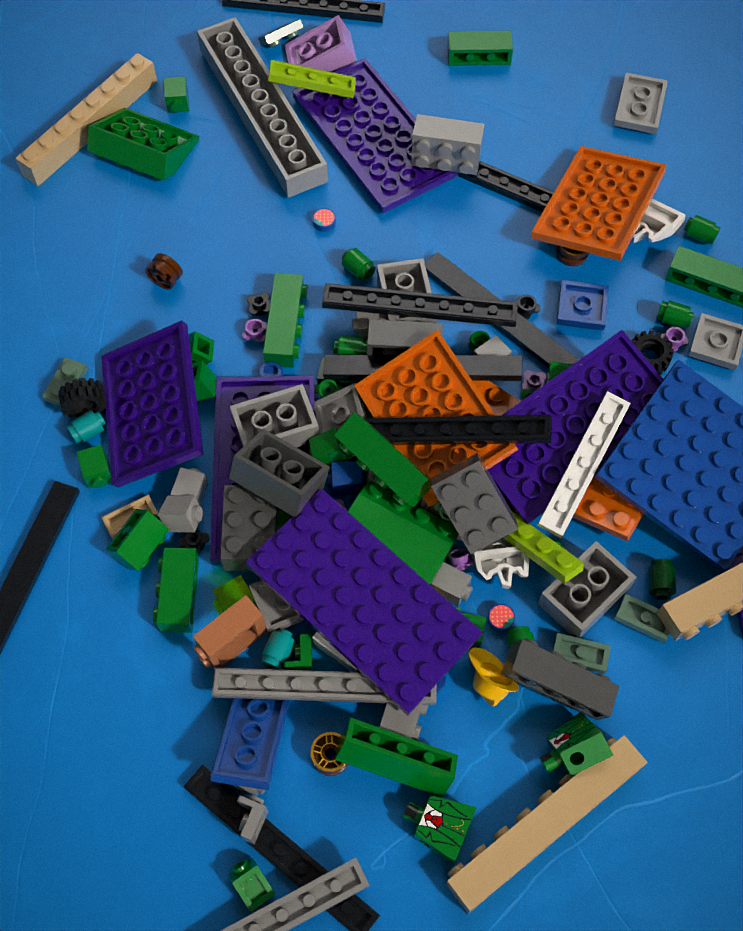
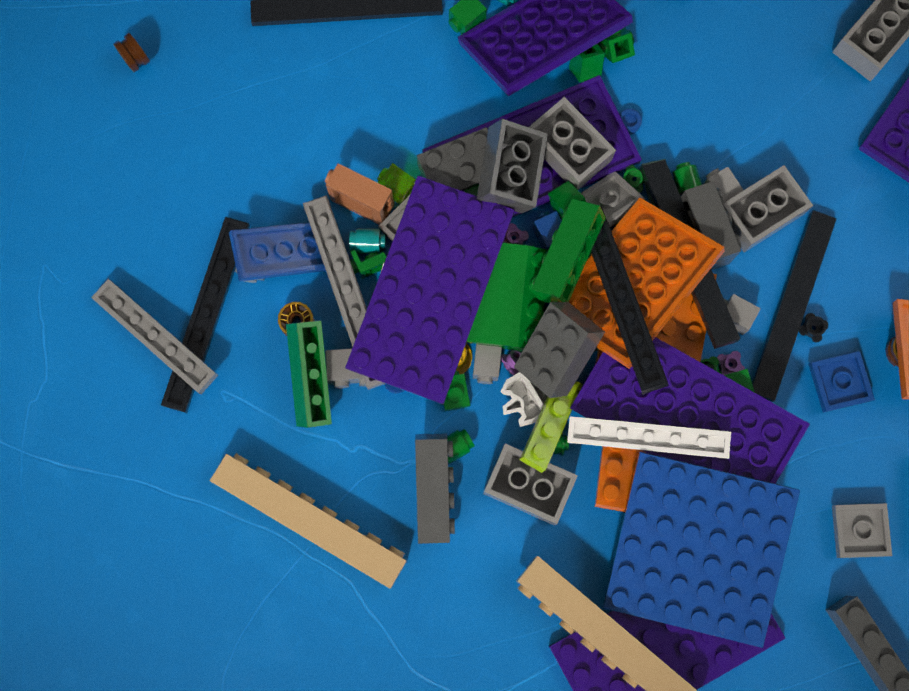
camera: 65 degrees right, 15 degrees up
(115, 520) = (435, 67): tan tile -> none
(137, 540) = (413, 81): green brick -> none
(176, 590) = (385, 135): green brick -> none
(181, 513) = (452, 105): light grey brick -> none
(190, 482) = (482, 102): light grey brick -> none
(199, 544) = (436, 135): black plate -> none
(250, 884) = (170, 301): green bracket -> none
(252, 325) = (672, 83): medium lavender plate -> none
(253, 822) = (215, 282): light grey bracket -> none
(259, 309) = (694, 84): black plate -> none
(284, 319) = (690, 107): green brick -> none
(324, 219) = (822, 96): tile -> none
(358, 264) = (784, 149): green brick -> none
(420, 305) = (756, 224): black tile -> none
(441, 825) = (272, 433): green torso -> none
(478, 336) = (755, 292): green plate -> none
(488, 678) = (423, 419): yellow piece -> none
(501, 618) = (476, 419): tile -> none
(576, 746) = (380, 521): green torso -> none
(589, 653) = (470, 500): sand green plate -> none
(642, 618) = (528, 544): sand green plate -> none
(657, 344) = (825, 455): black tyre -> none
(661, 579) = (572, 551): dark green brick -> none
(675, 314) = (872, 477): green brick -> none
(677, 334) = (851, 482): medium lavender plate -> none

